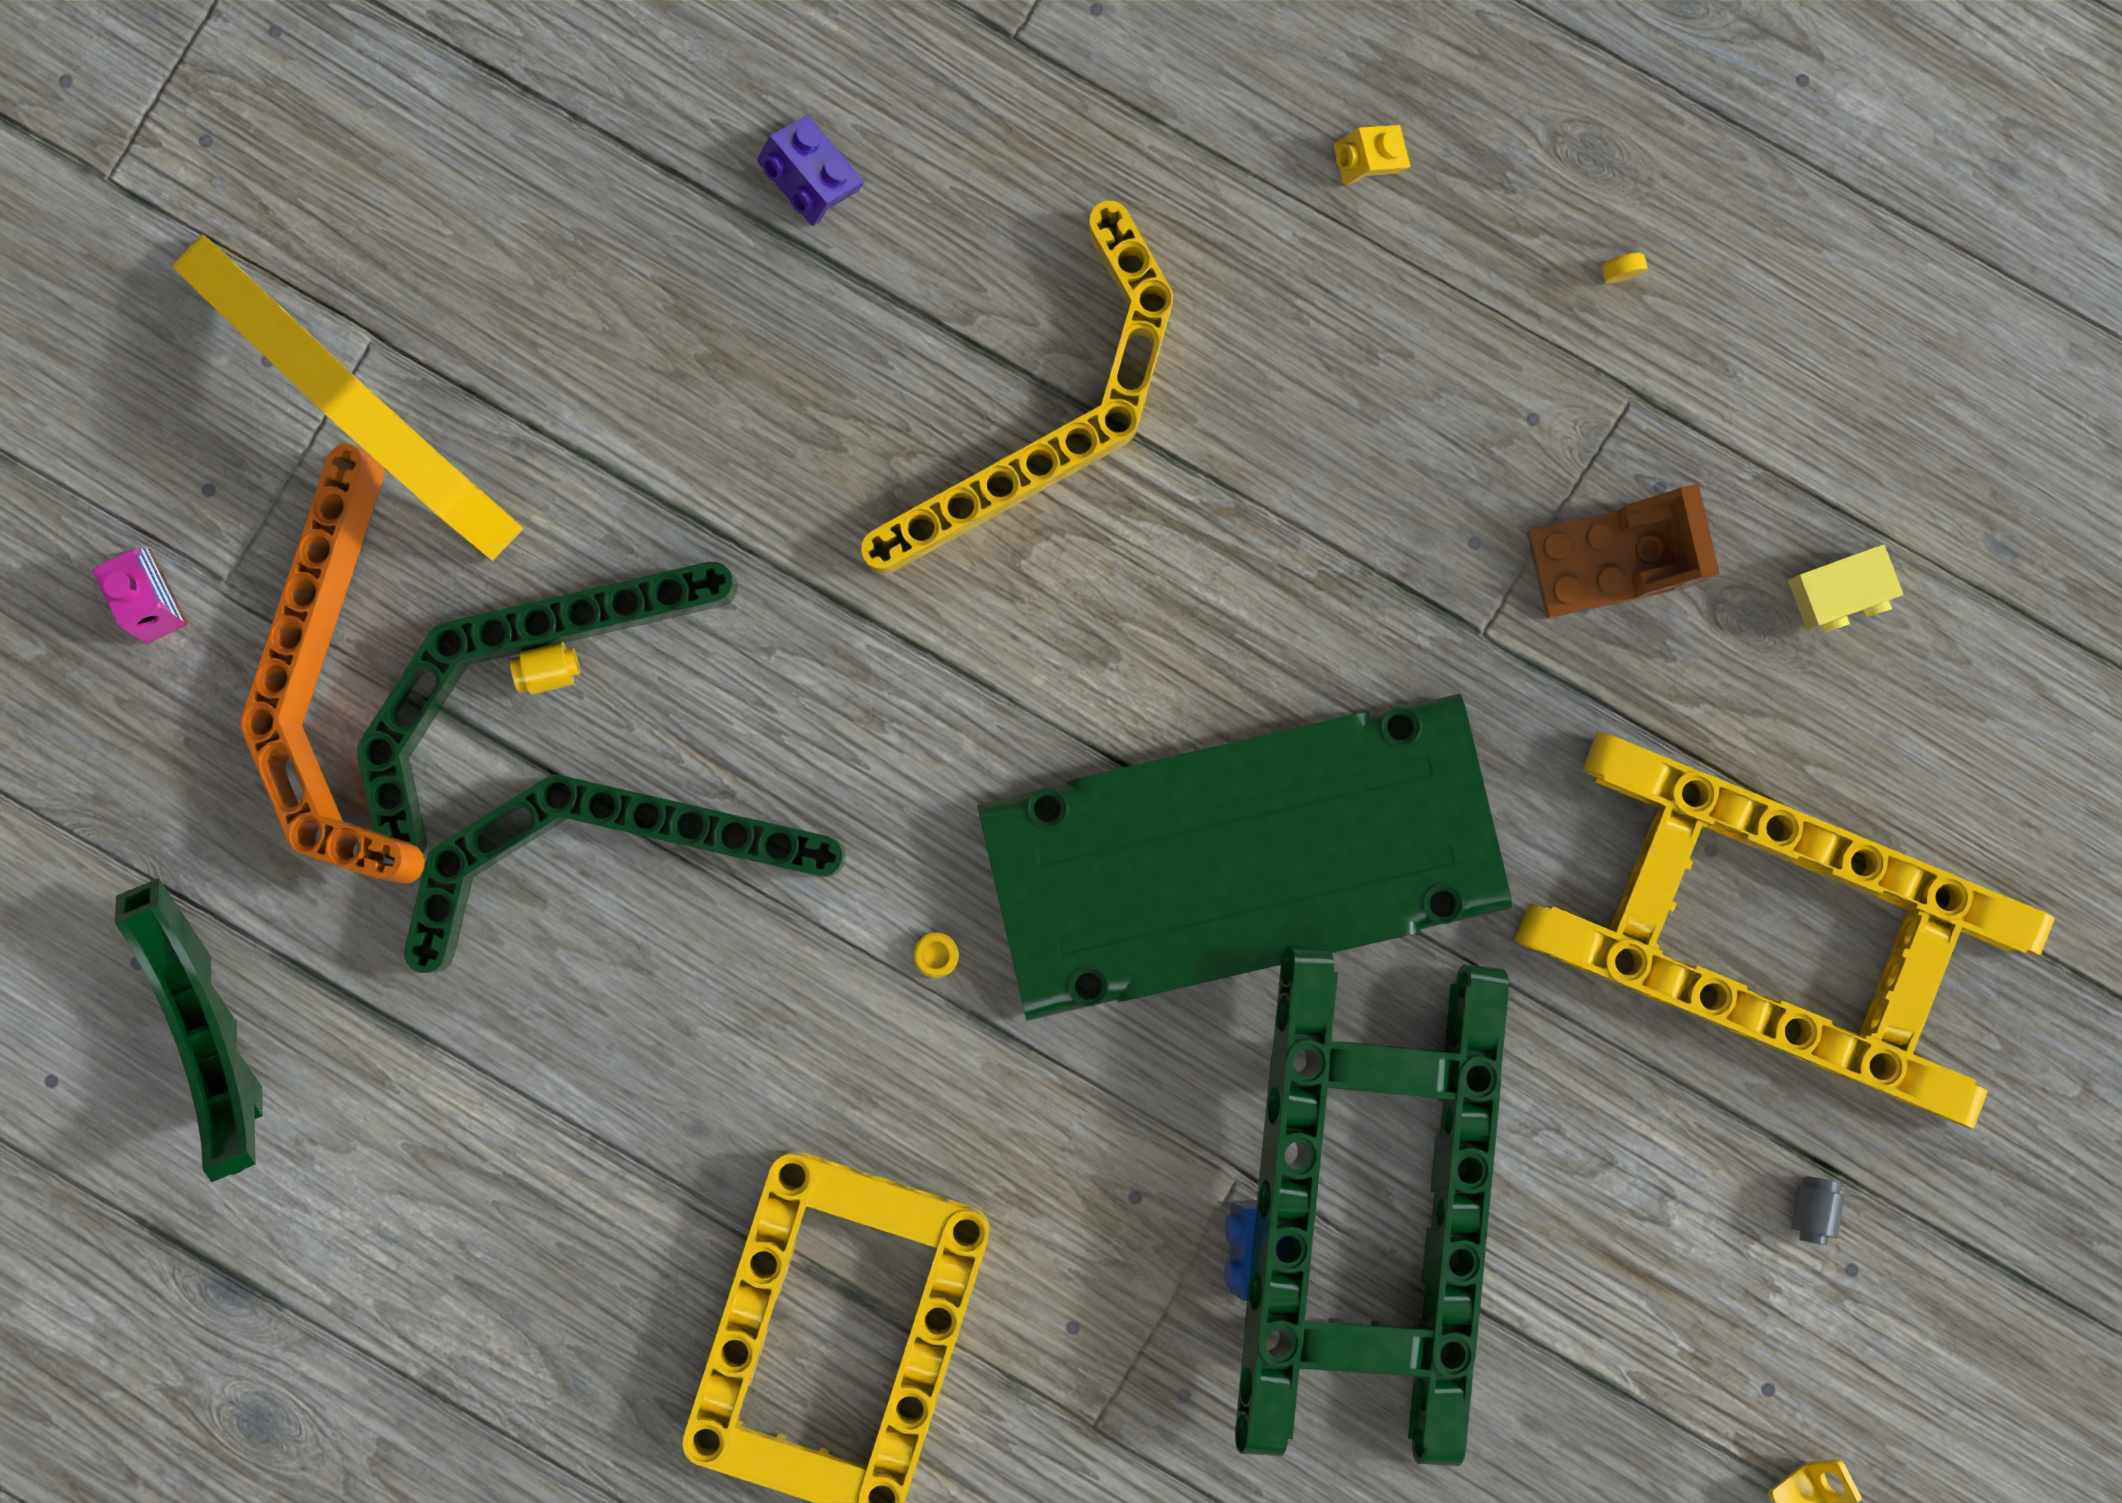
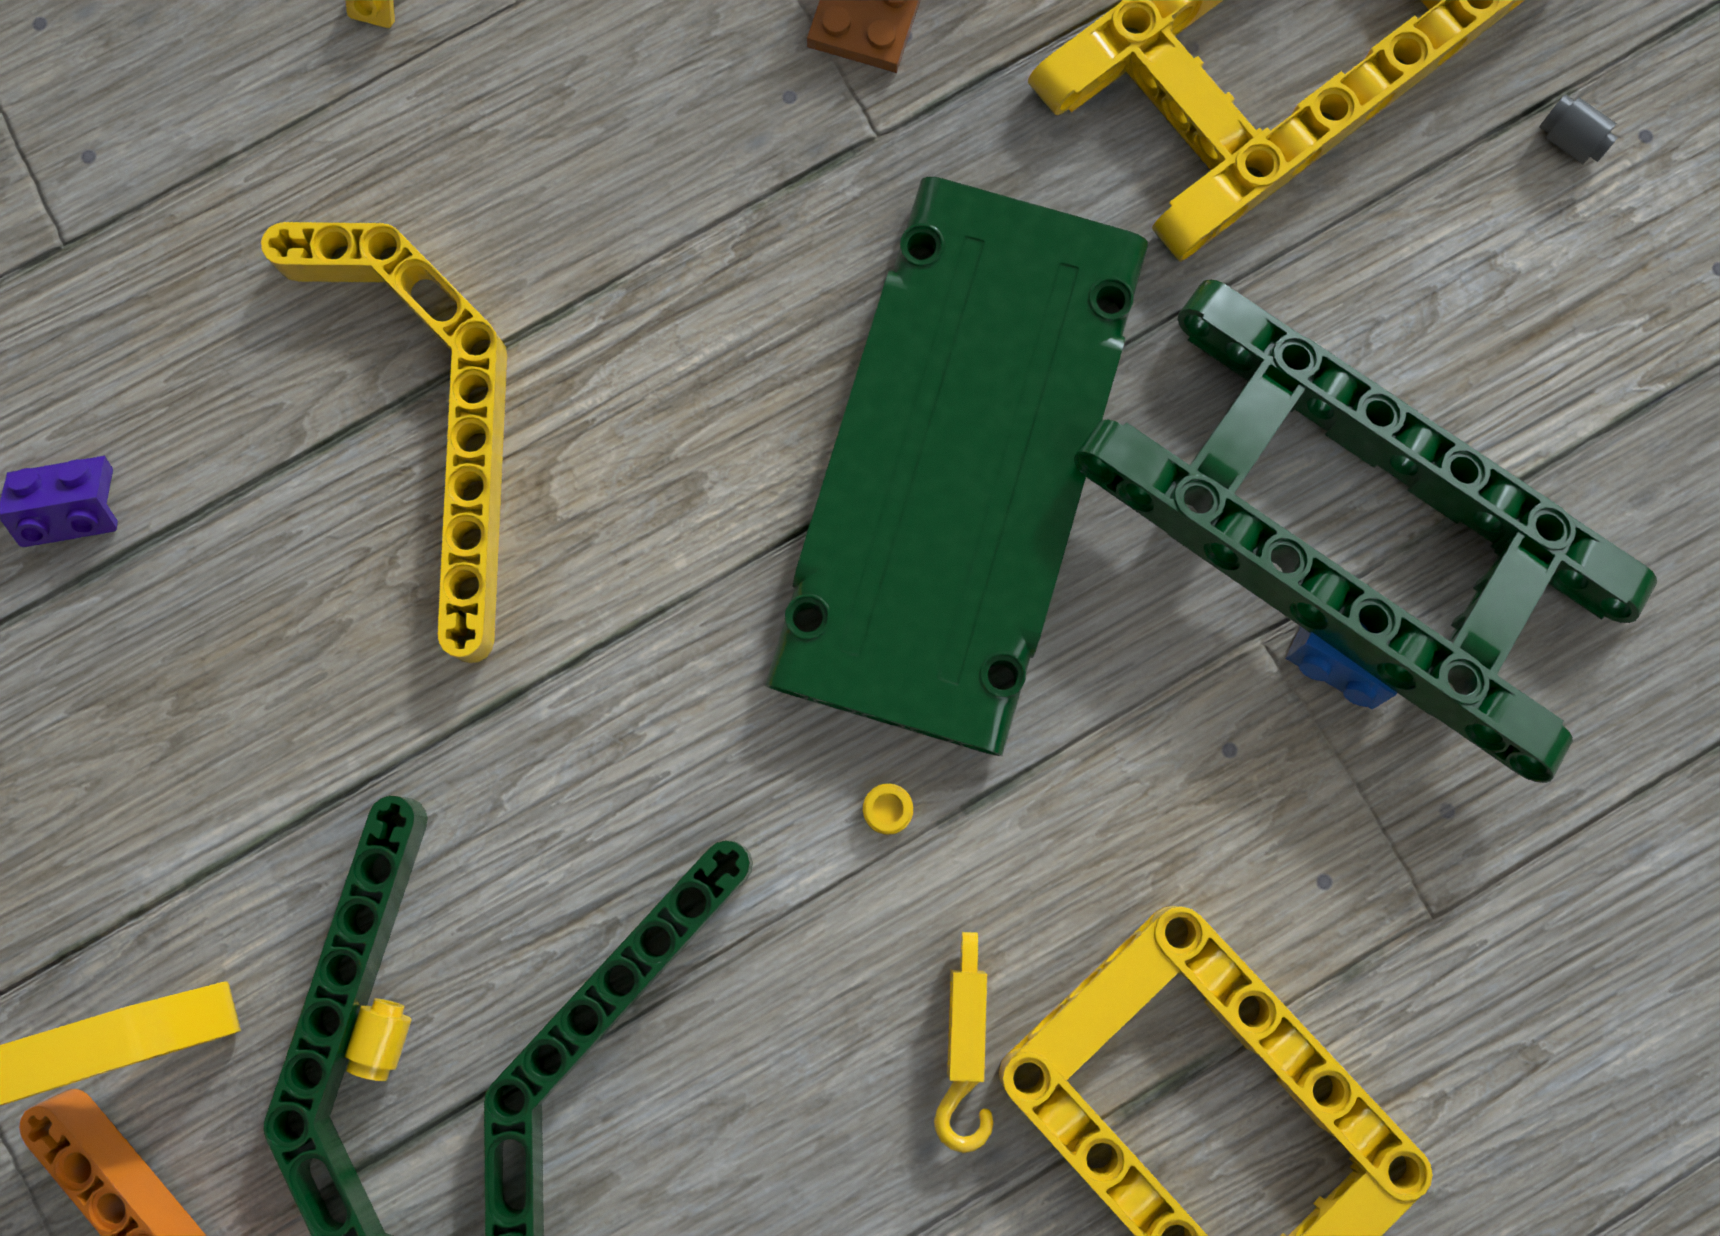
camera: 55 degrees left, 5 degrees down
(788, 1116) = (965, 1047): none -> yellow piece

